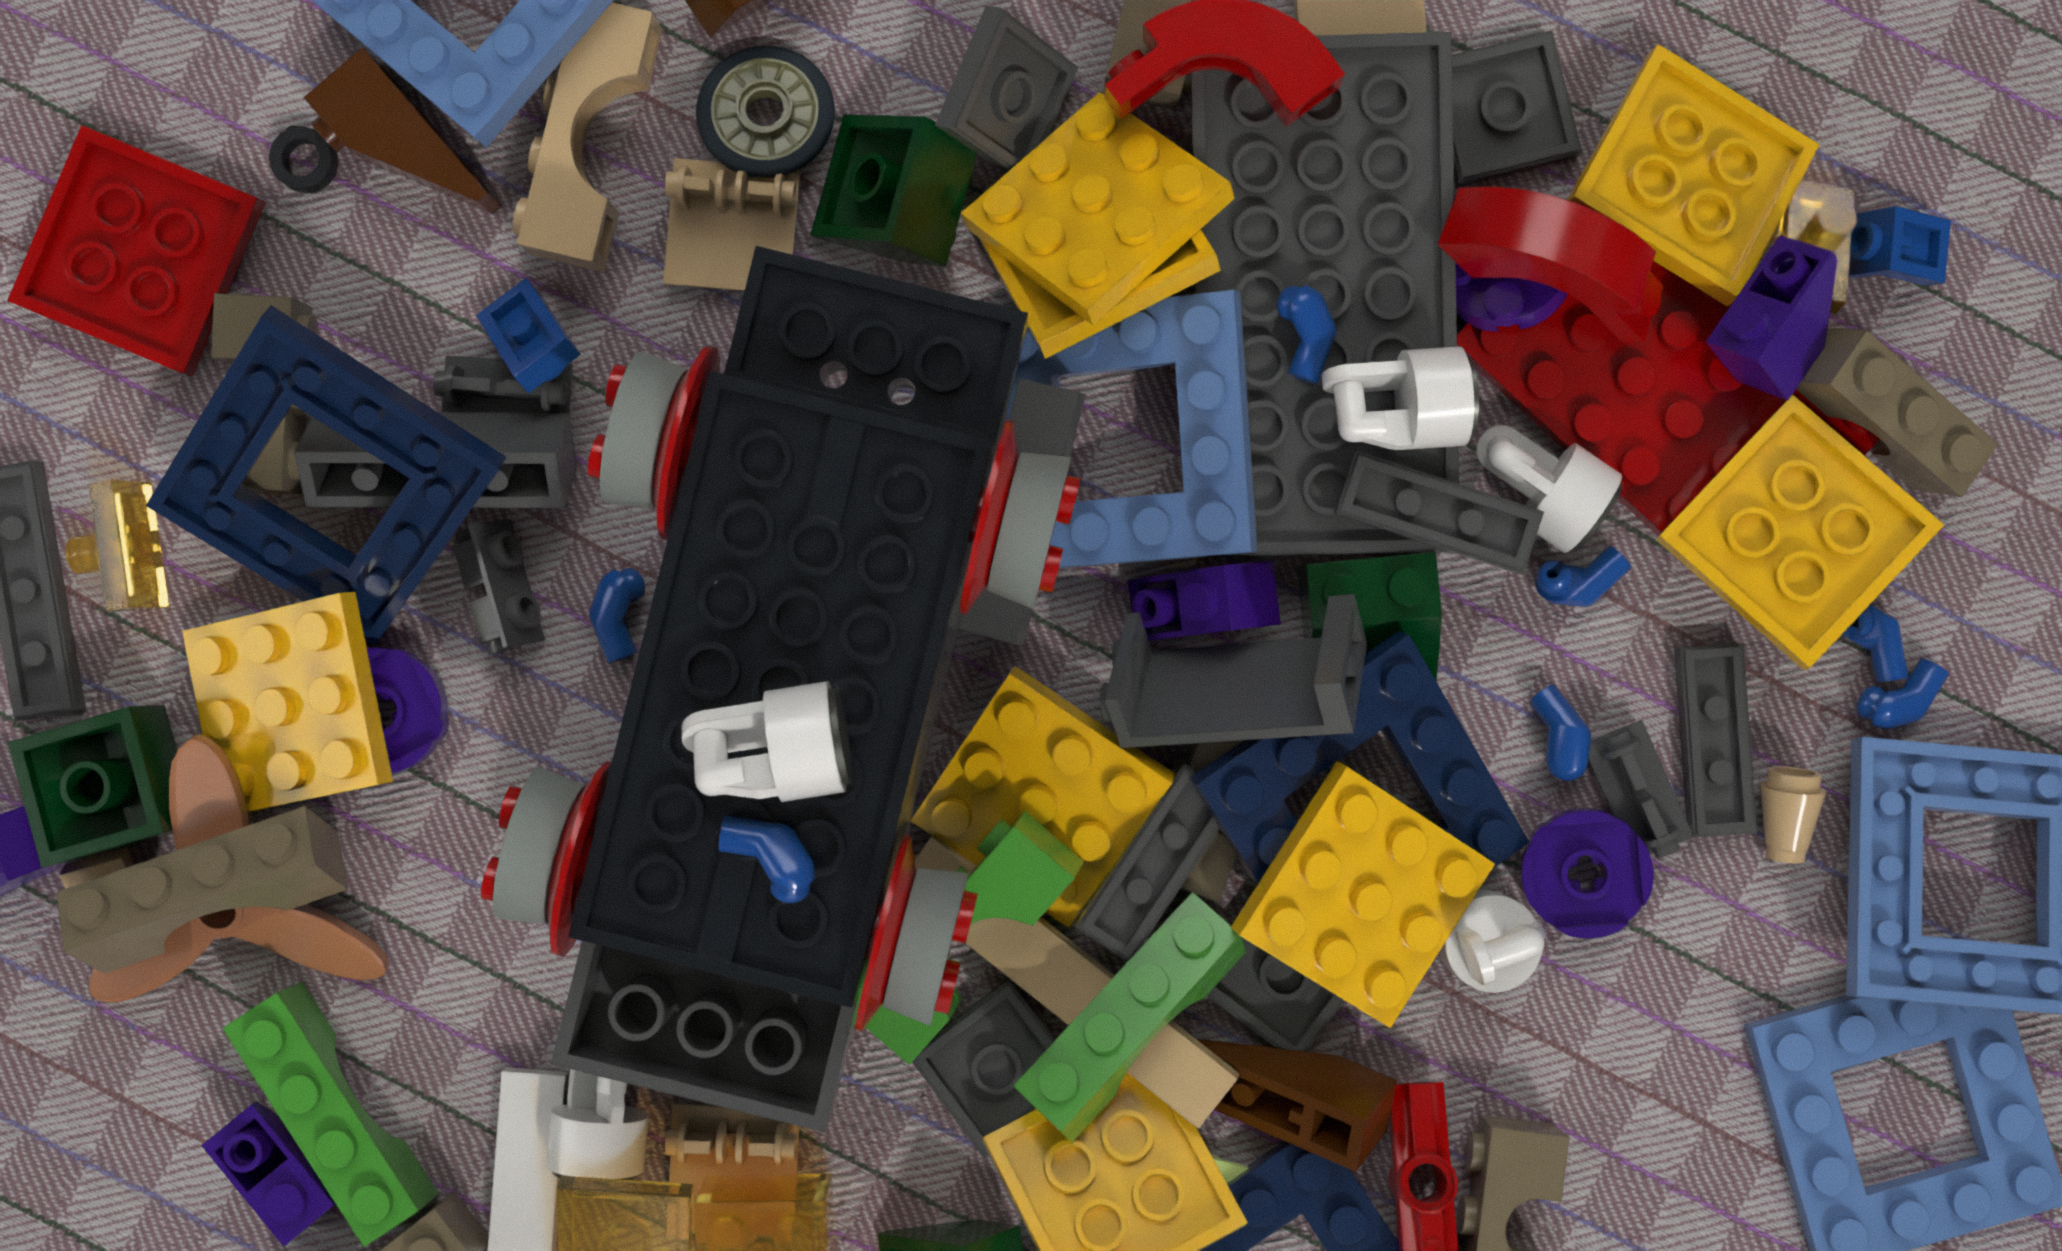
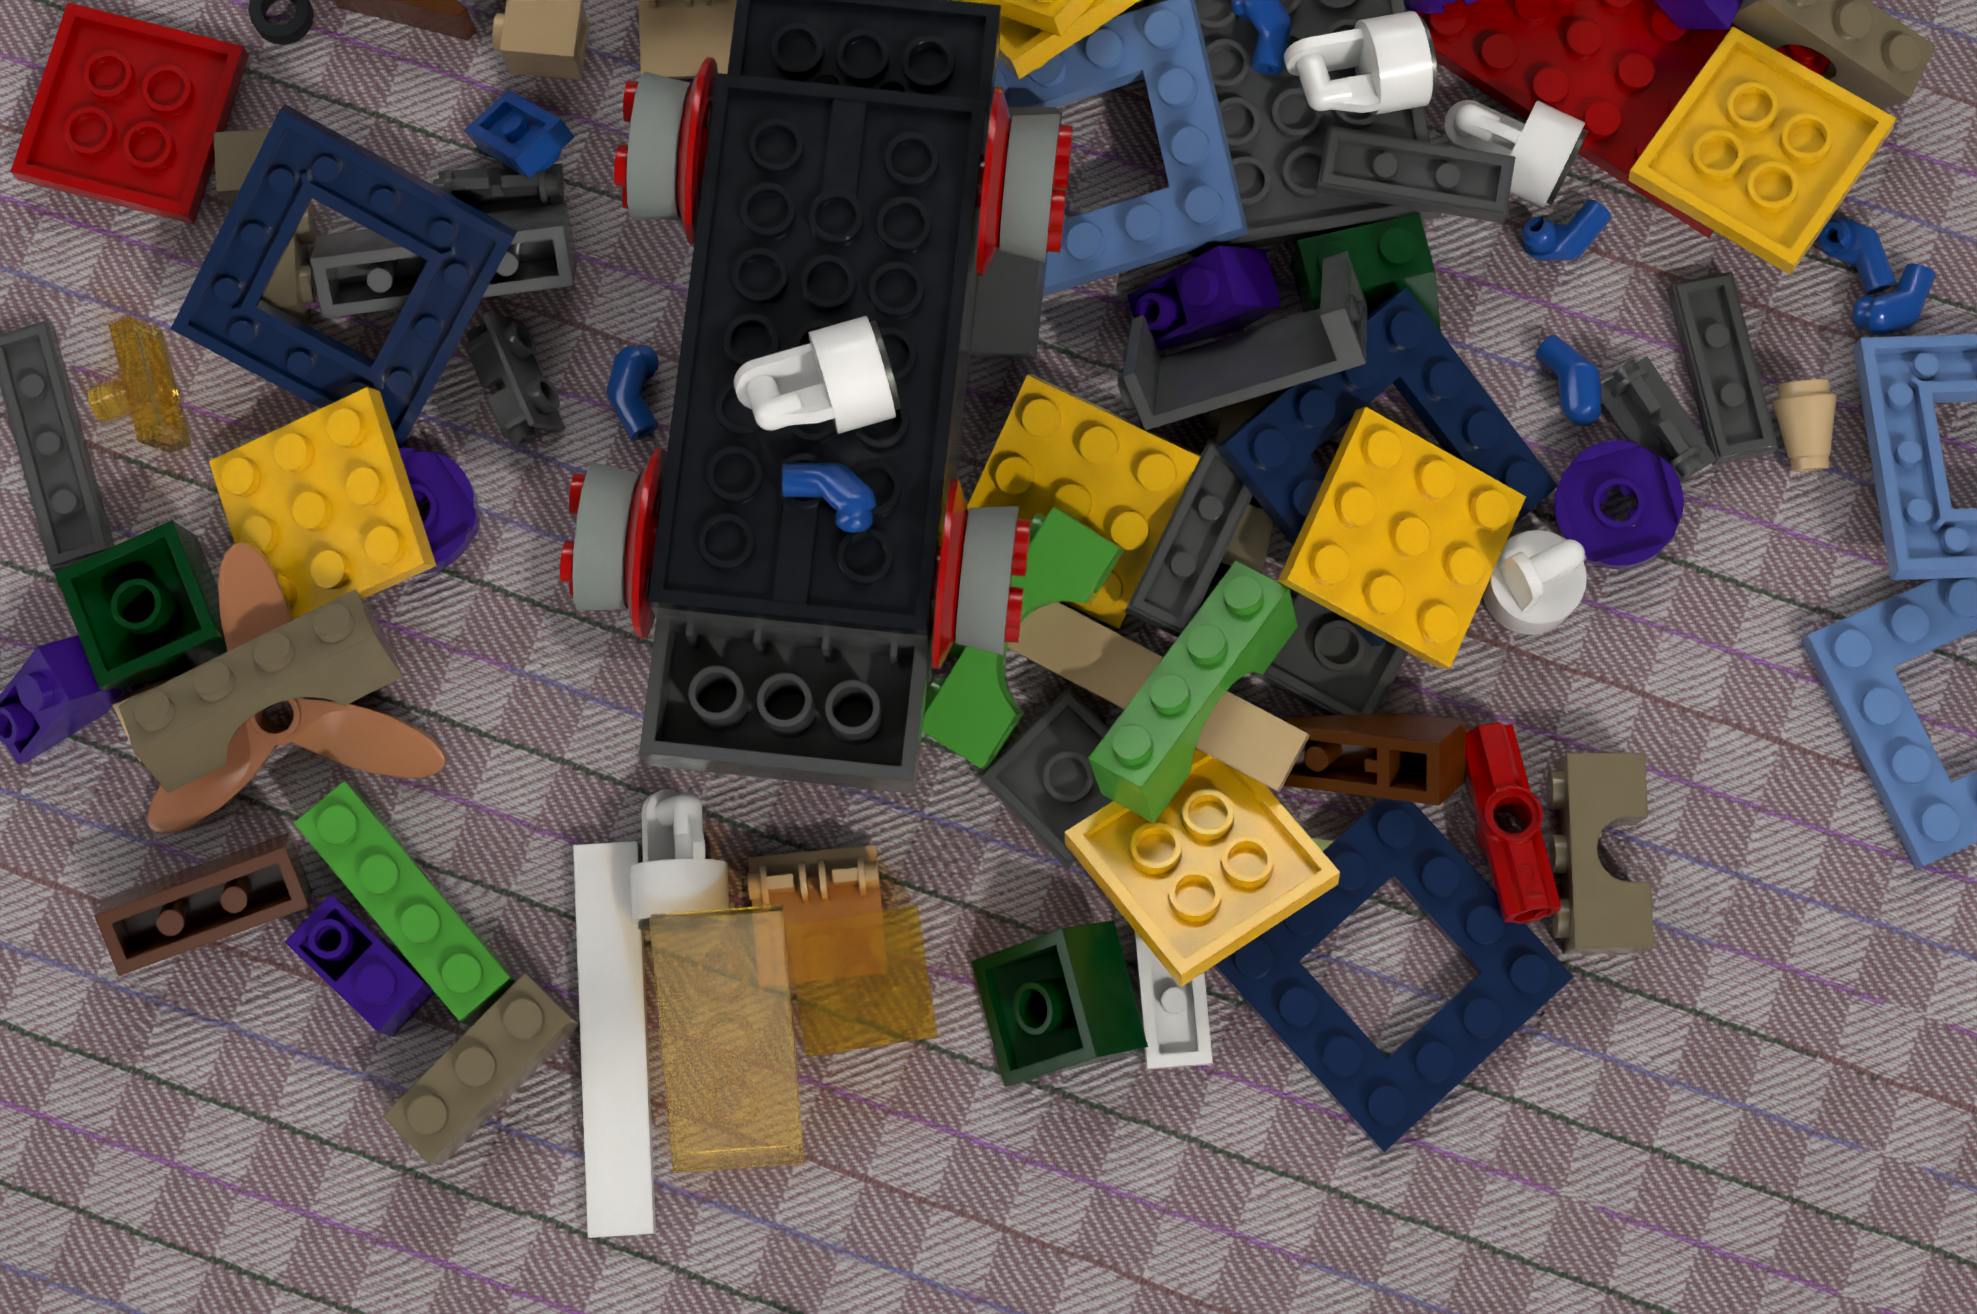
camera: 10 degrees left, 10 degrees down
(129, 1089) = (203, 904): none -> reddish brown brick

